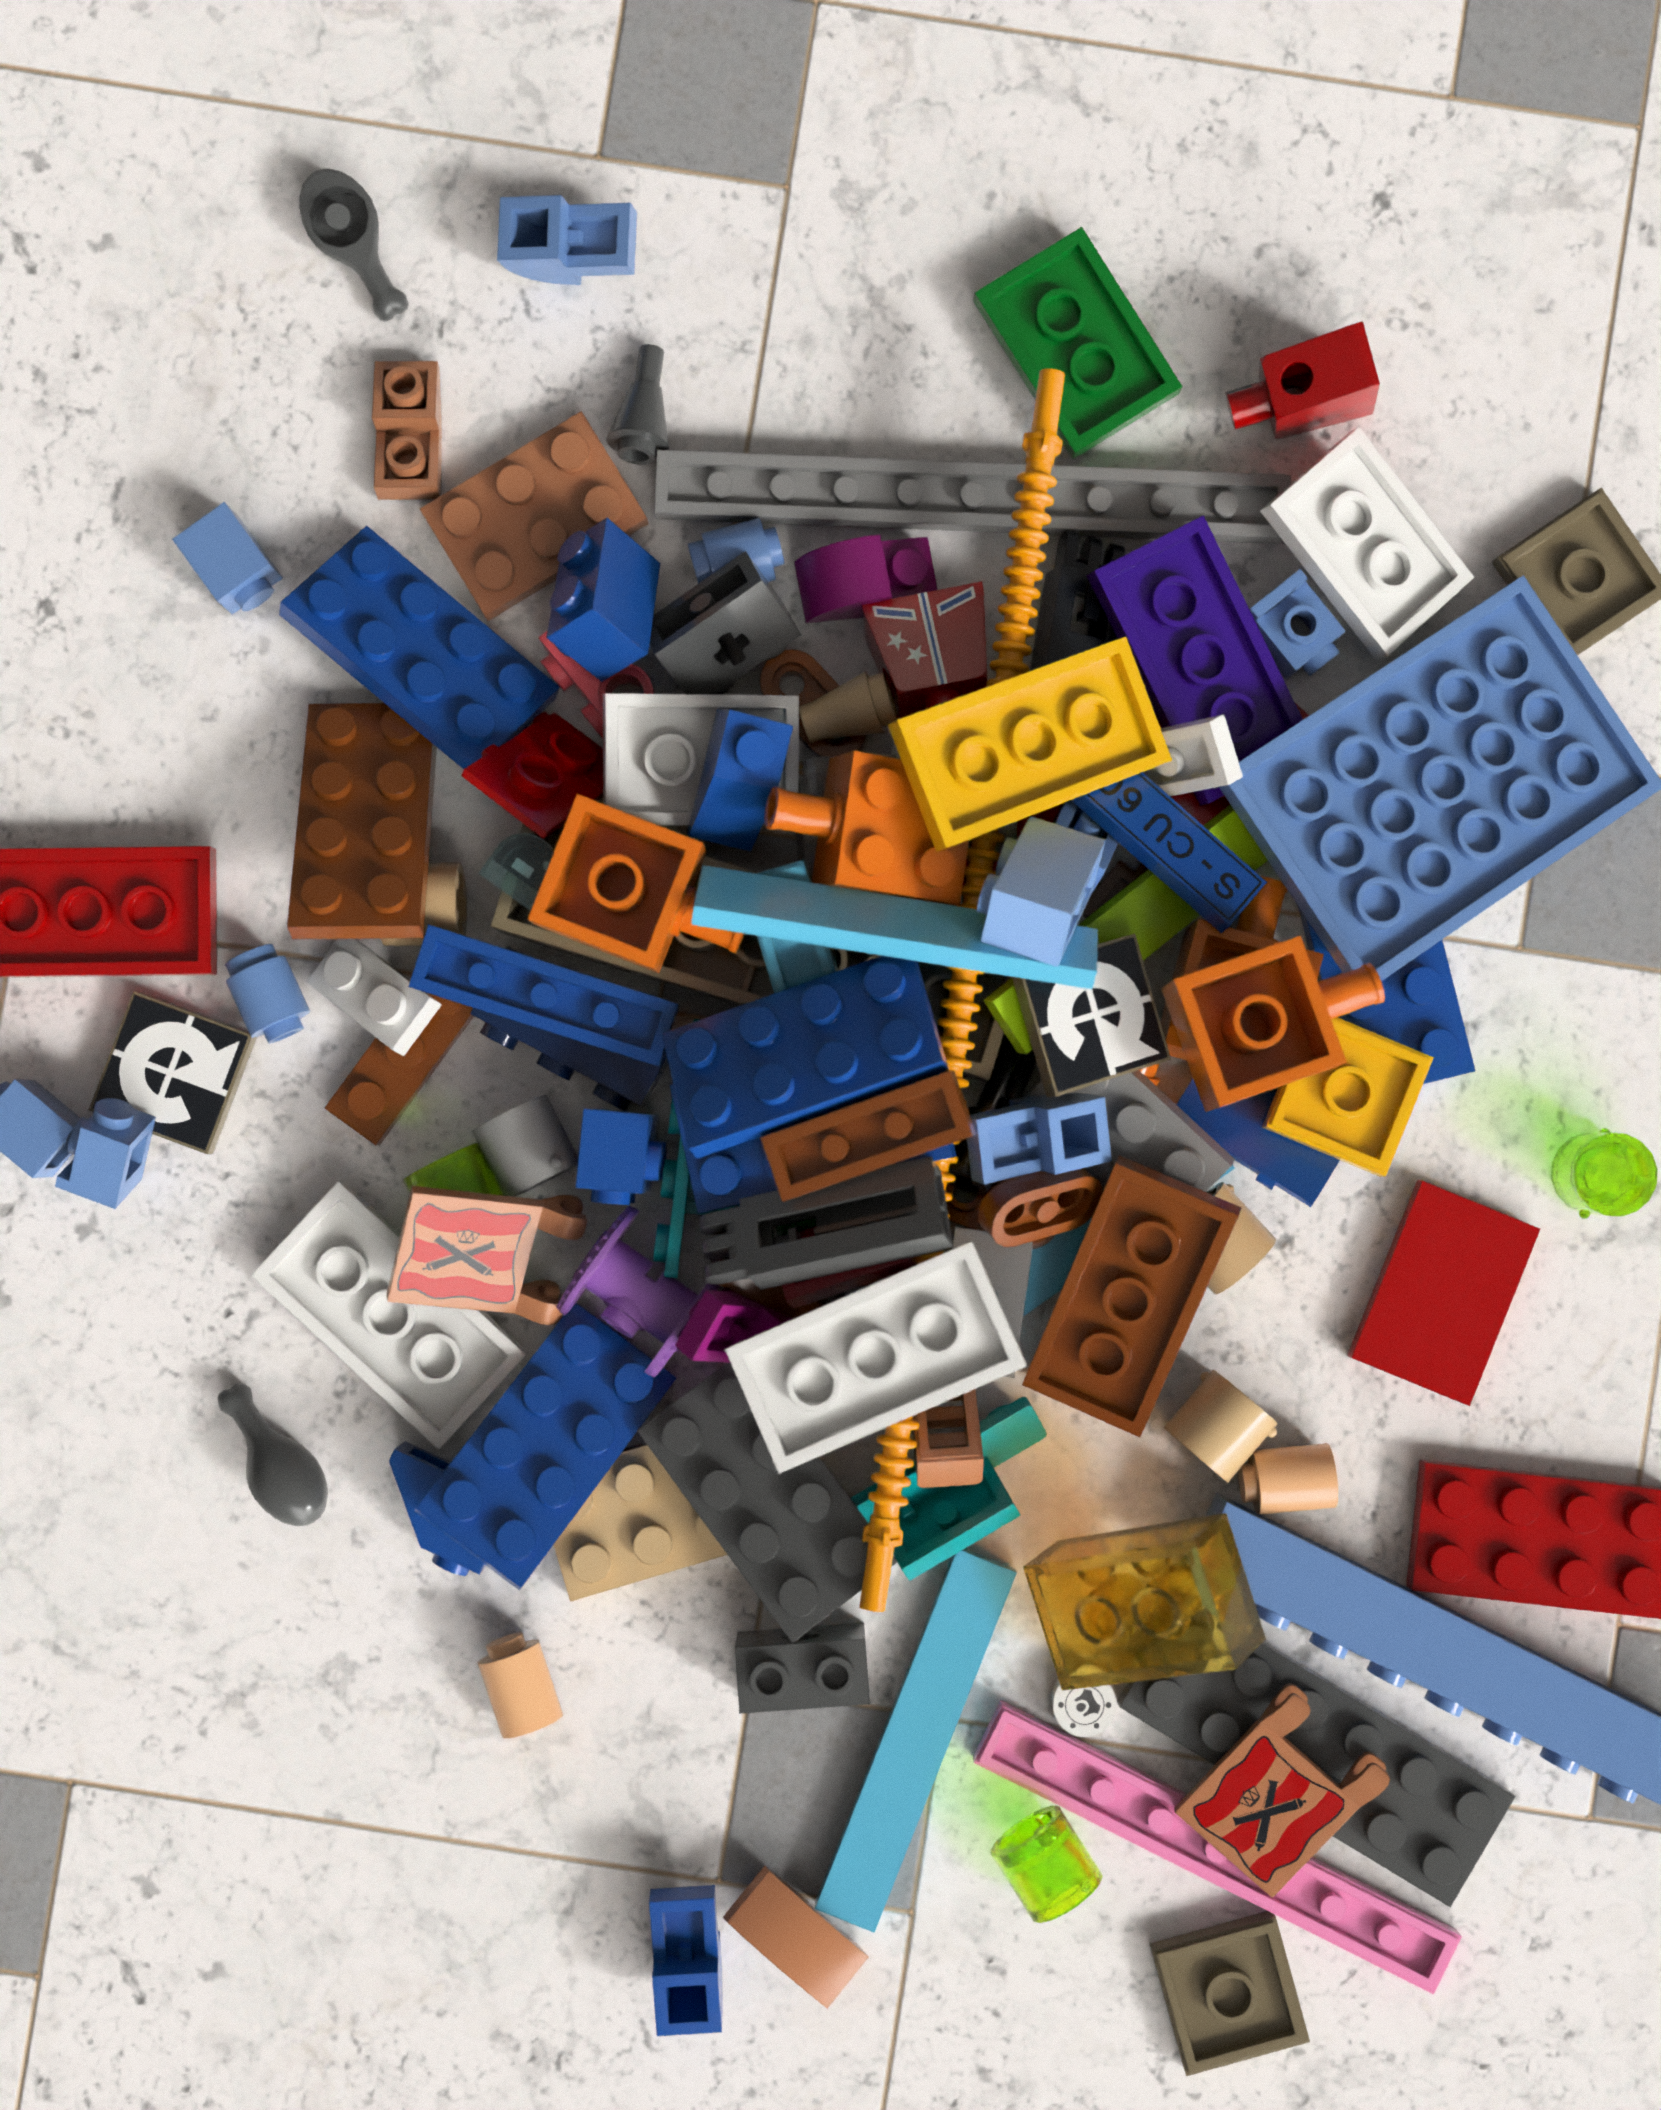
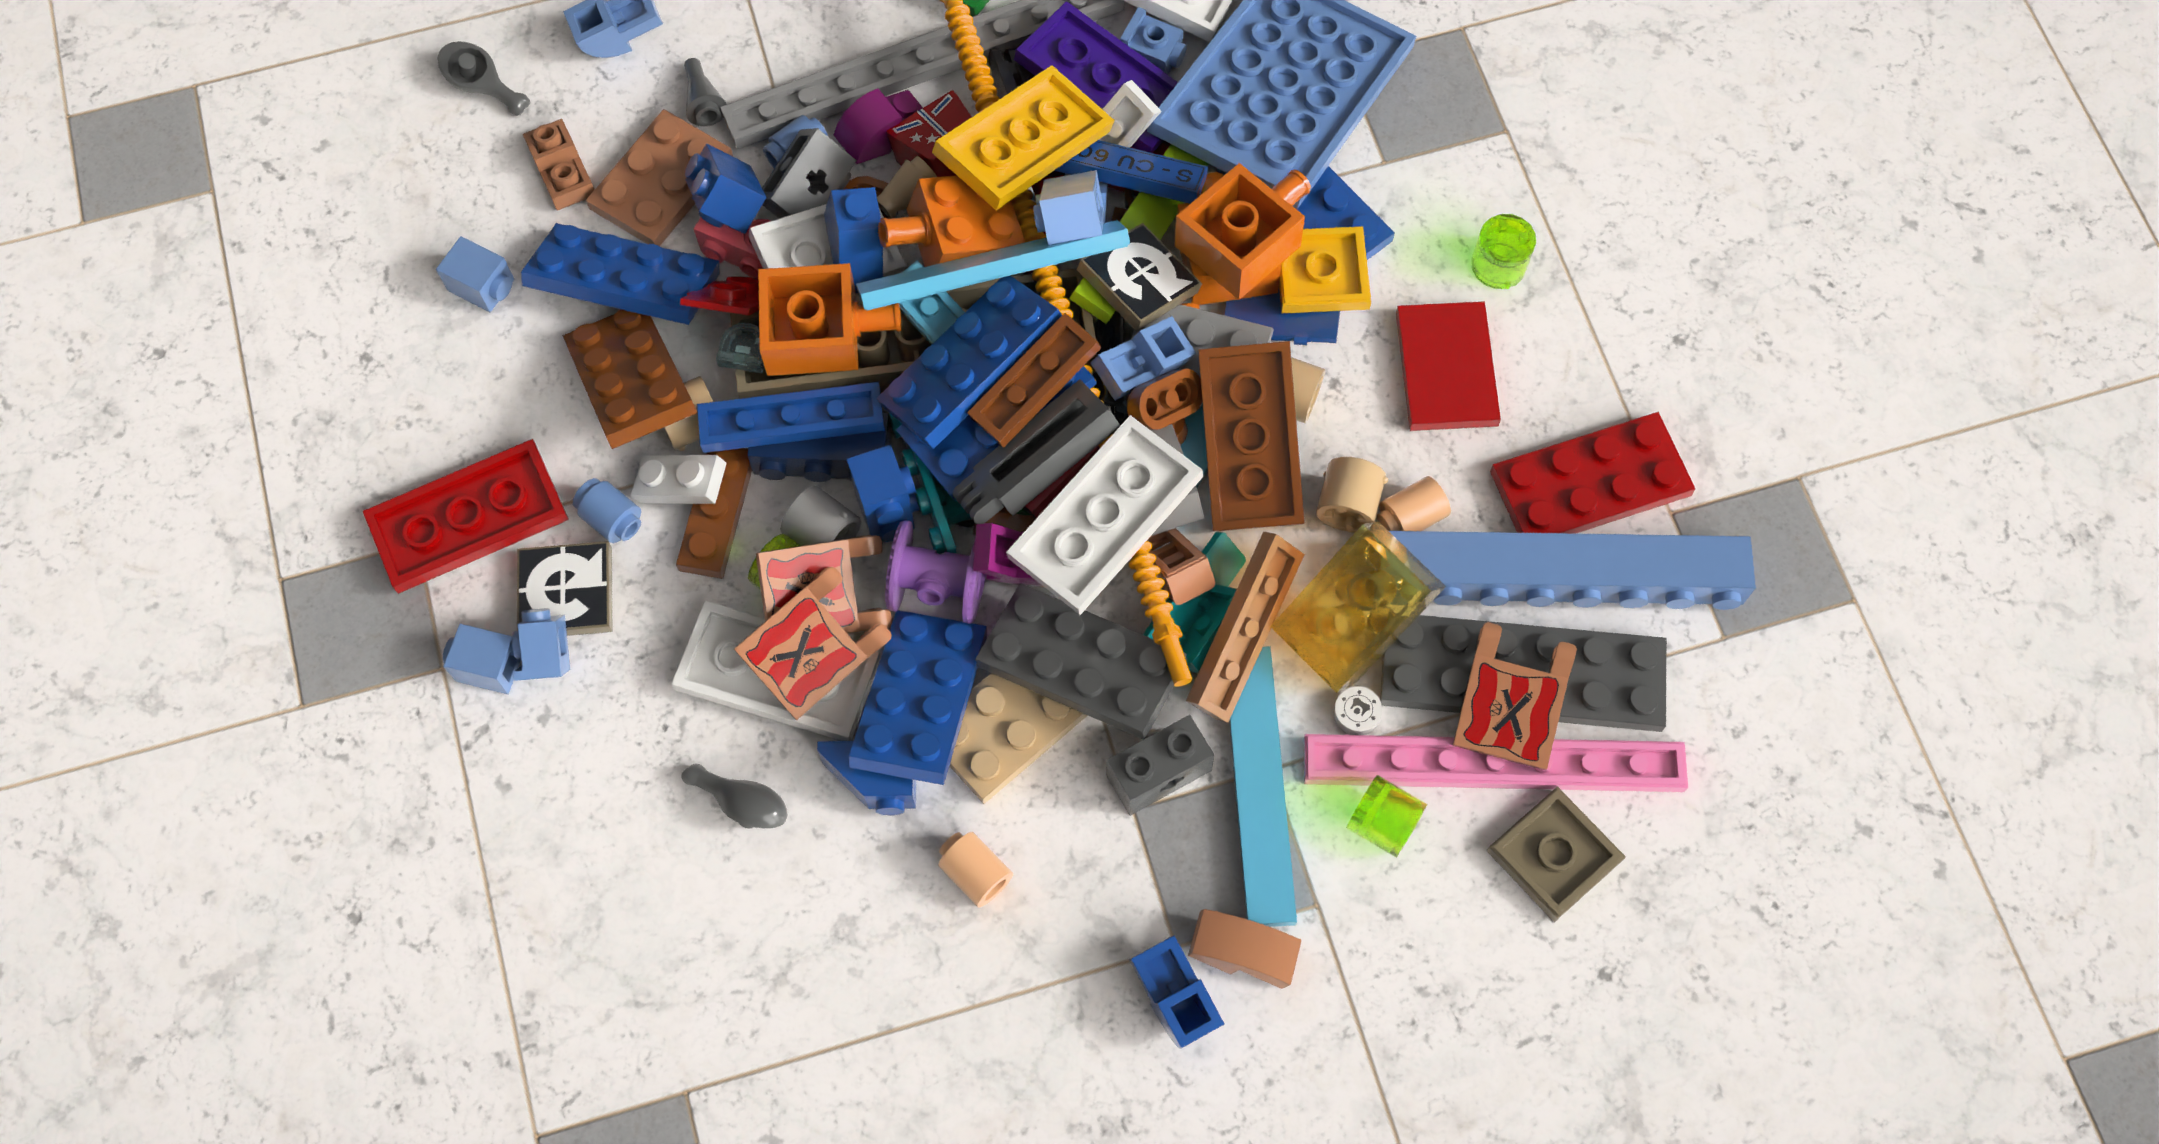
camera: 20 degrees left, 20 degrees down
(431, 1325) = (804, 650): none -> flag
(992, 1553) = (1245, 627): none -> medium nougat plate

